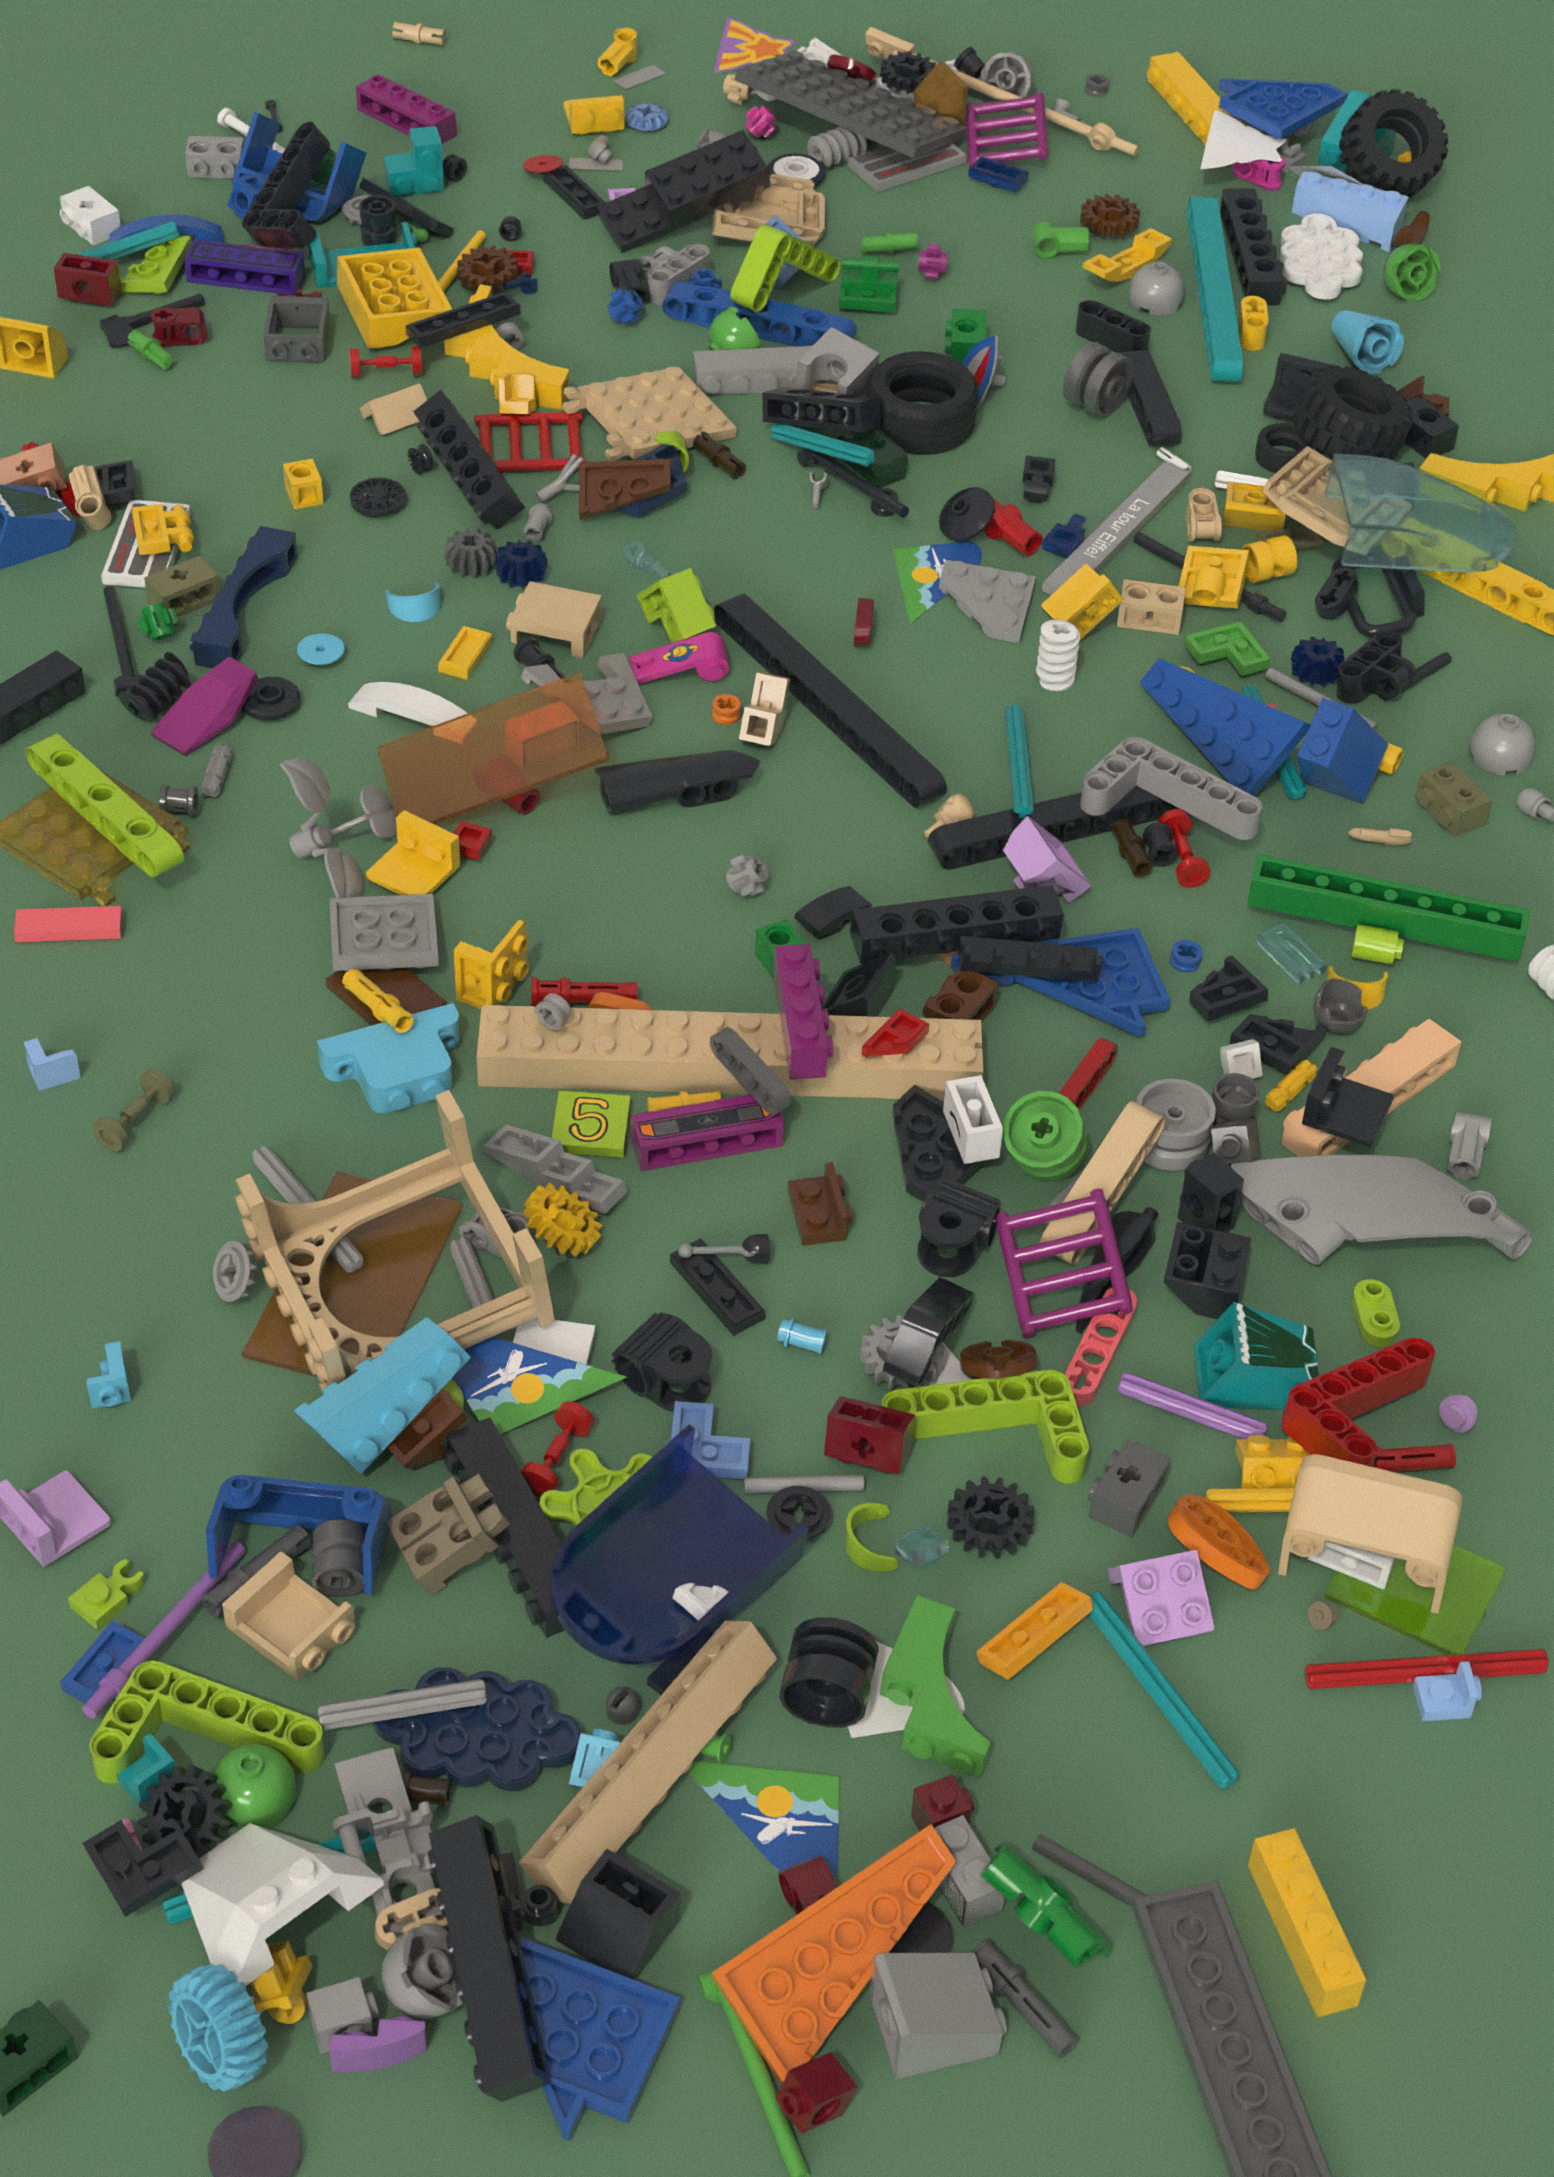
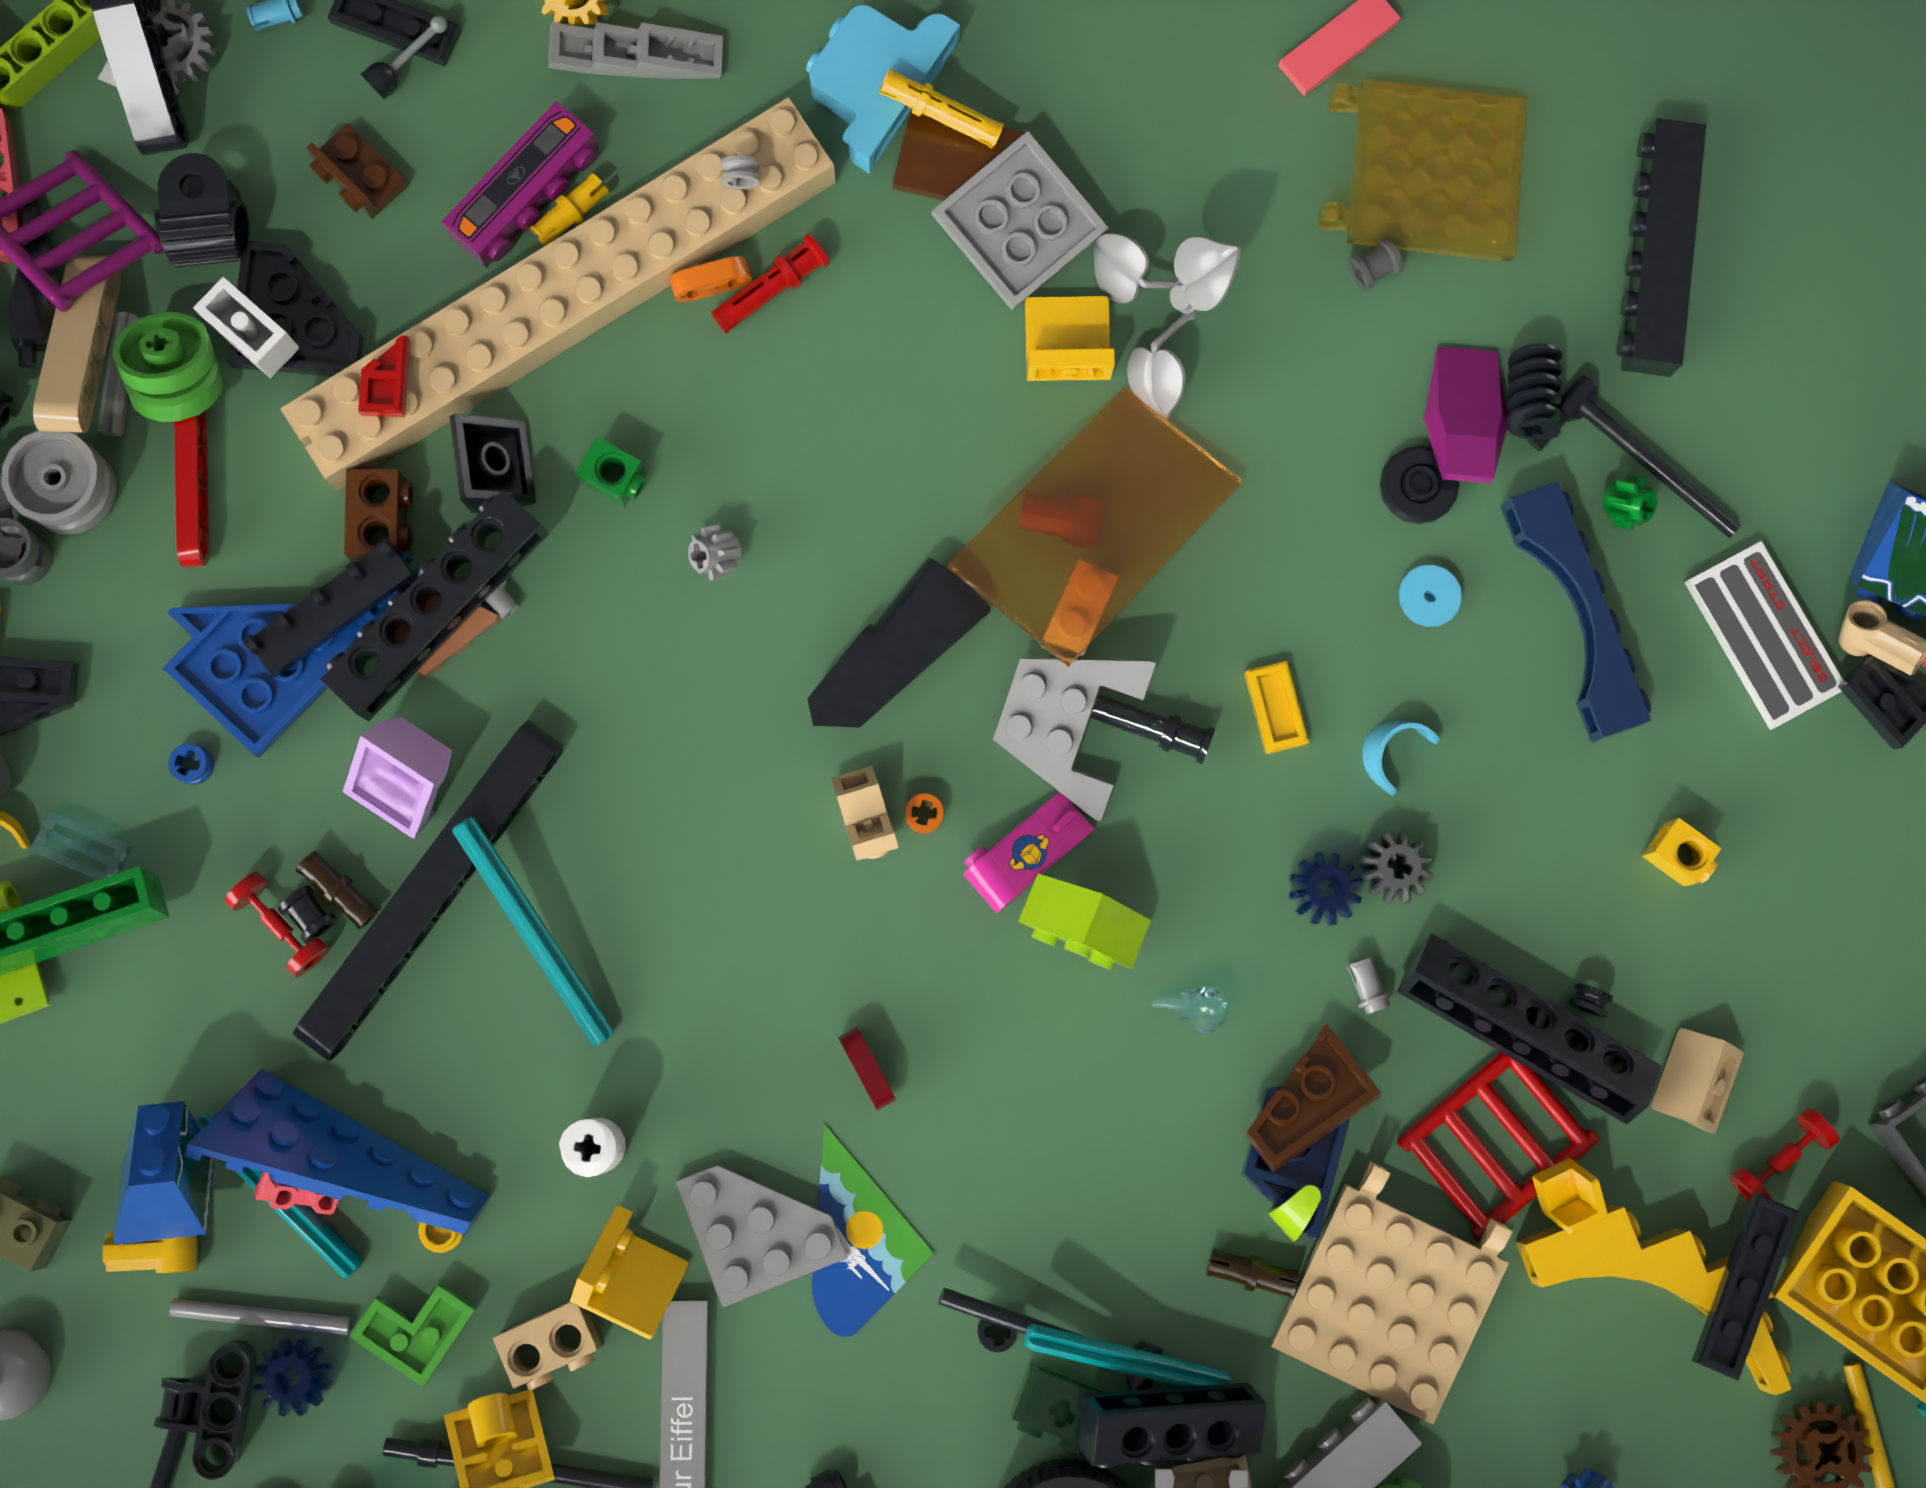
camera: 140 degrees right, 35 degrees up
(104, 805) = (1459, 181): lime beam -> none
(152, 530) = (1765, 635): yellow plate -> none
(183, 586) = (1638, 593): olive brick -> none
(216, 771) = (1380, 339): light grey axle -> none
(378, 497) = (1585, 902): black wheel -> none
(404, 701) = (1254, 570): white slope -> none
(473, 839) = (1040, 414): red plate -> none
(489, 976) = (865, 207): yellow bracket -> none
(511, 328) = (1682, 1327): light grey bush -> none
(527, 285) = (1759, 1460): clear blue hand -> none
(557, 614) = (1214, 818): tan panel -> none
(559, 484) = (1395, 1076): light grey plant -> none
(592, 1123) = (644, 132): lime tile -> none
(750, 1071) = (498, 233): dark grey beam -> none
(801, 1012) = (498, 336): magenta brick -> none
(817, 487) = (1096, 1302): light grey hand -> none
(829, 911) = (597, 571): black slope -> none
(831, 701) = (822, 903): black beam -> none
(953, 810) = (562, 808): tan piece -> none
(966, 514) = (861, 1375): black dish -> none
(1000, 1361) = (69, 84): reddish brown tile -> none
(1009, 525) = (826, 1387): red piece -> none
(1065, 539) = (730, 1408): clear blue plate -> none
(1173, 780) = (322, 983): light grey beam -> none
(1227, 991) = (115, 733): black wing -> none
(1242, 1058) = (44, 632): white tile -> none
(1390, 837) = (69, 1116): tan piece -> none

